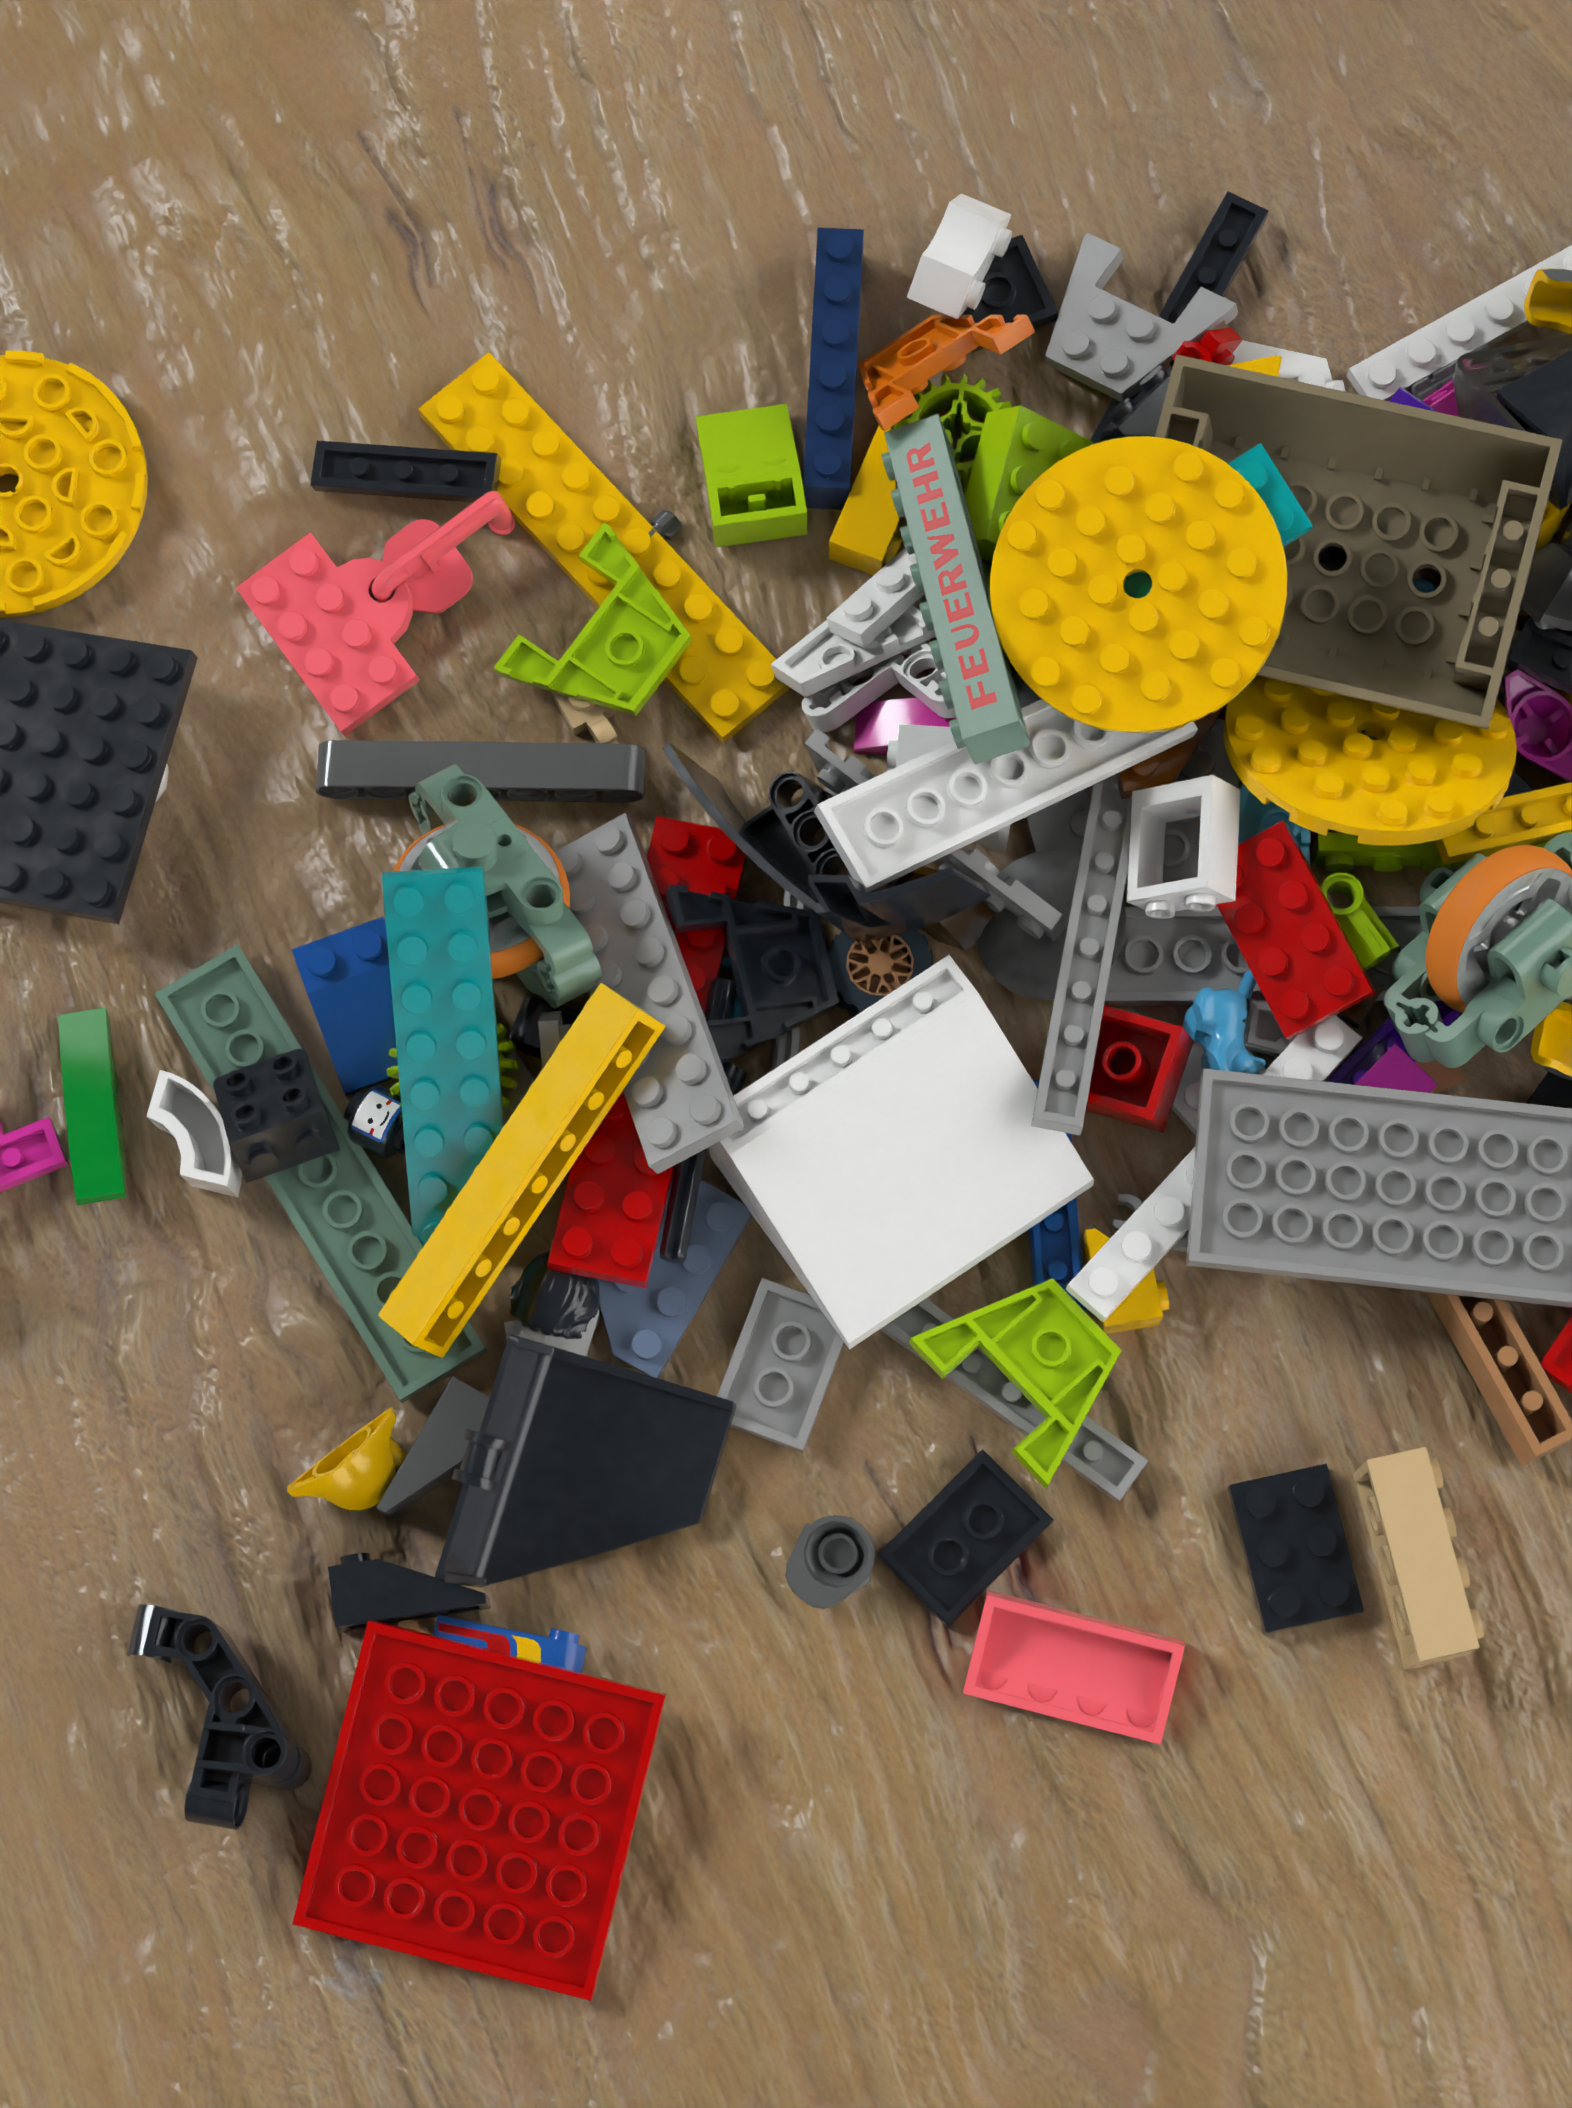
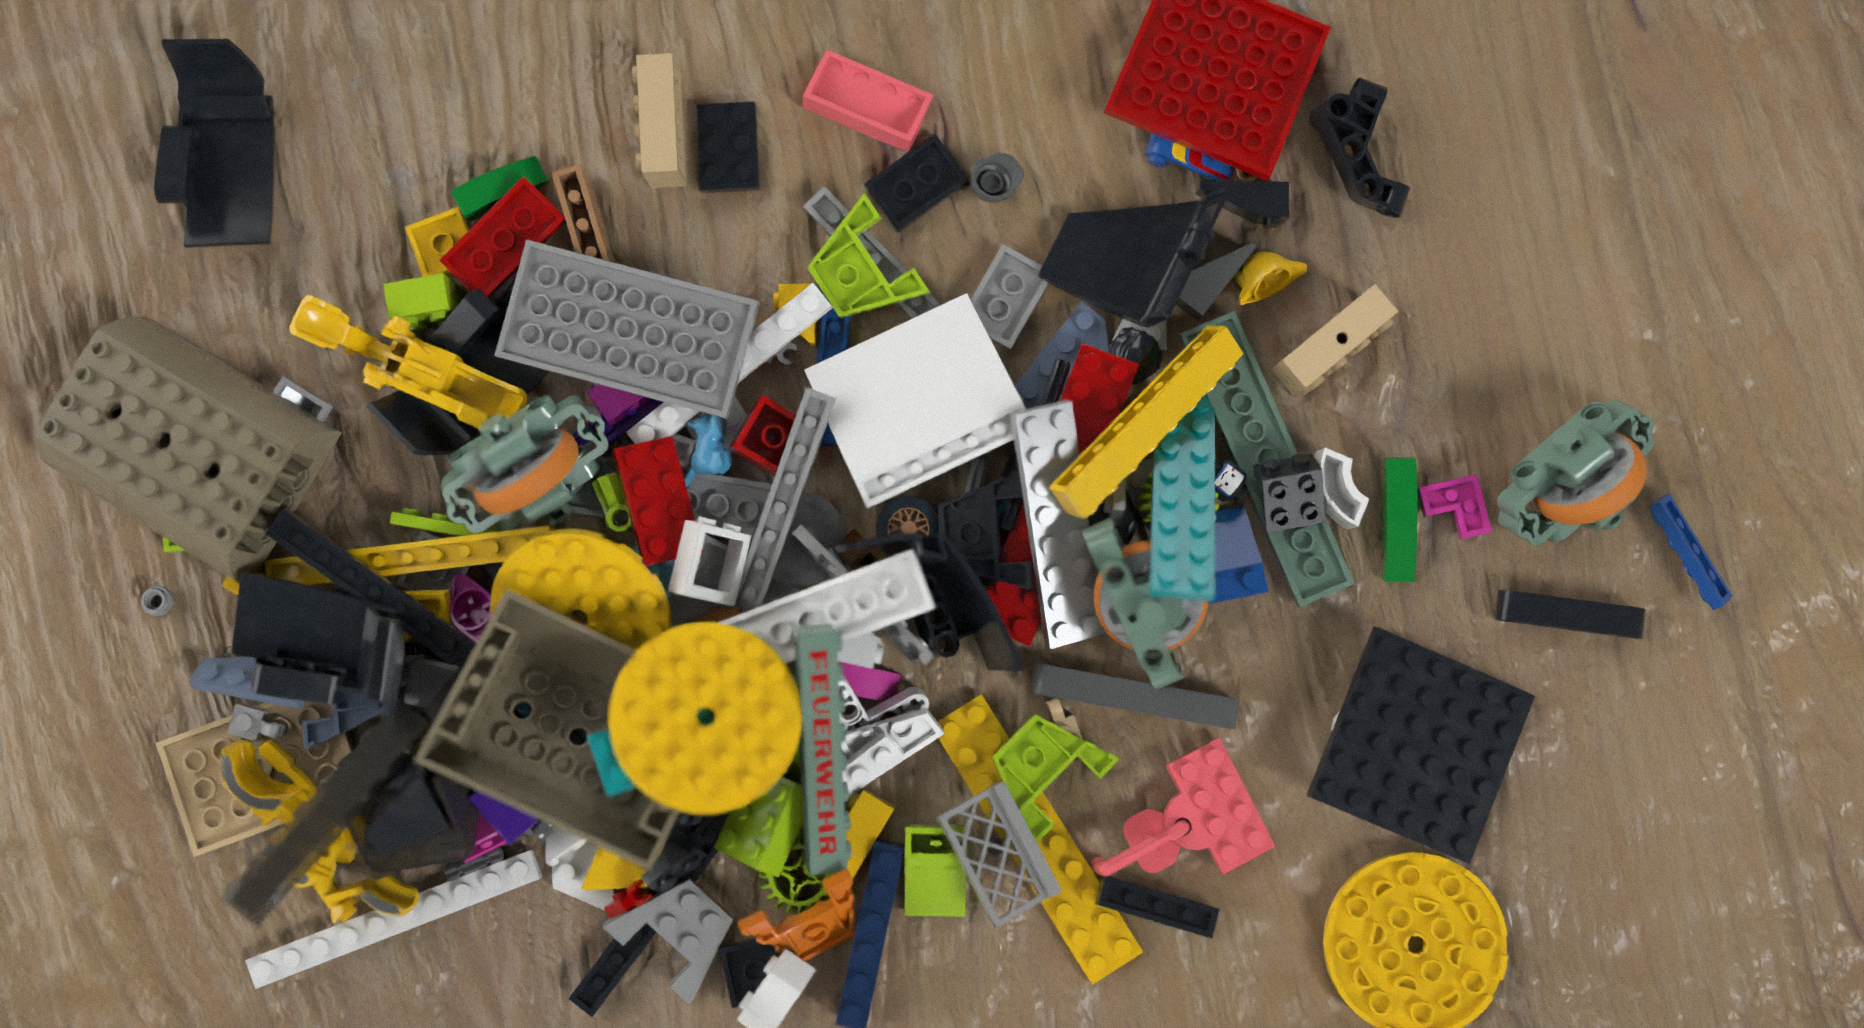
camera: 170 degrees left, 10 degrees up
(228, 1367) = (1340, 336): none -> tan brick
(626, 522) = (1022, 842): none -> light grey fence

